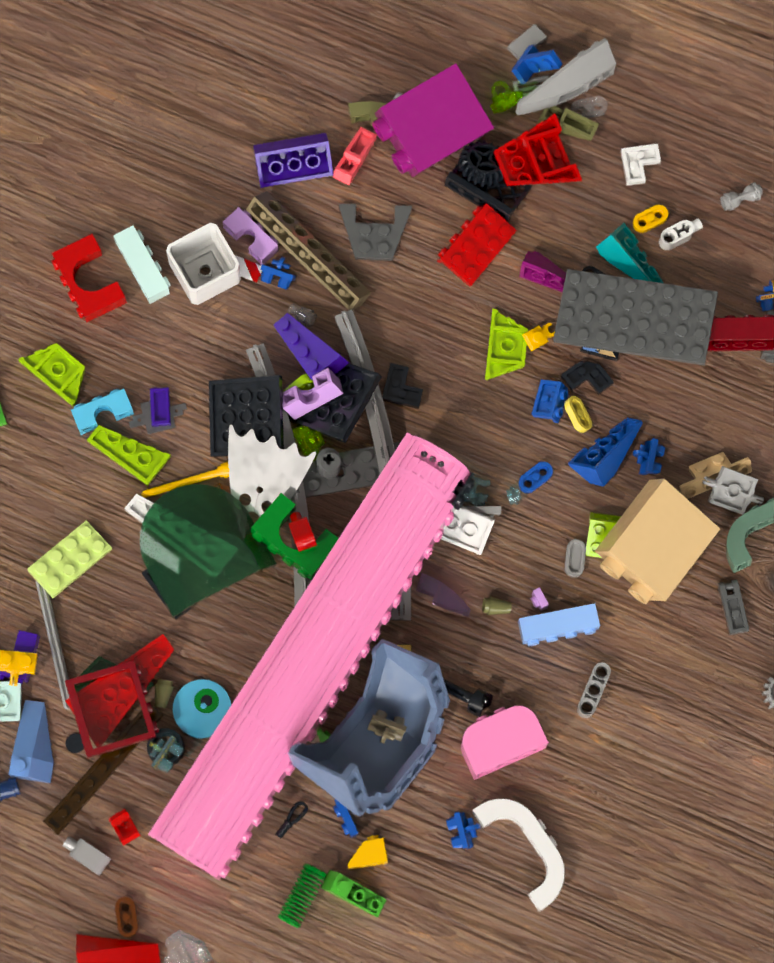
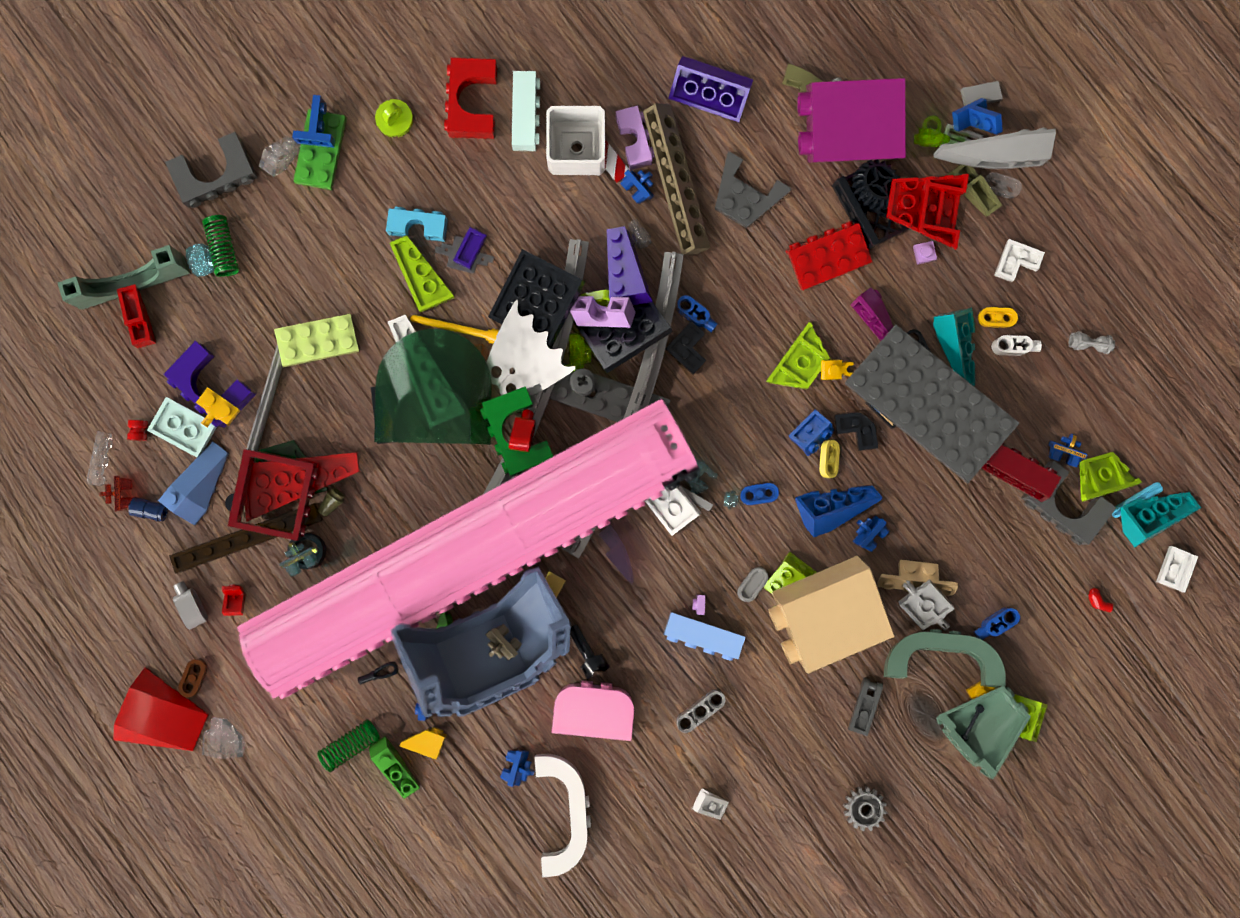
camera: 30 degrees right, 10 degrees up
(28, 332) = (394, 118): none -> lime tile
(57, 370) = (399, 167): lime wing -> none
(200, 708) = (356, 533): medium azure tile -> none
(354, 156) = (767, 115): coral slope -> none
(404, 356) = (707, 323): none -> blue piece
(495, 606) = (658, 588): olive cone -> none
(557, 198) = (925, 252): none -> lavender plate
(649, 766) = (710, 804): none -> white slope

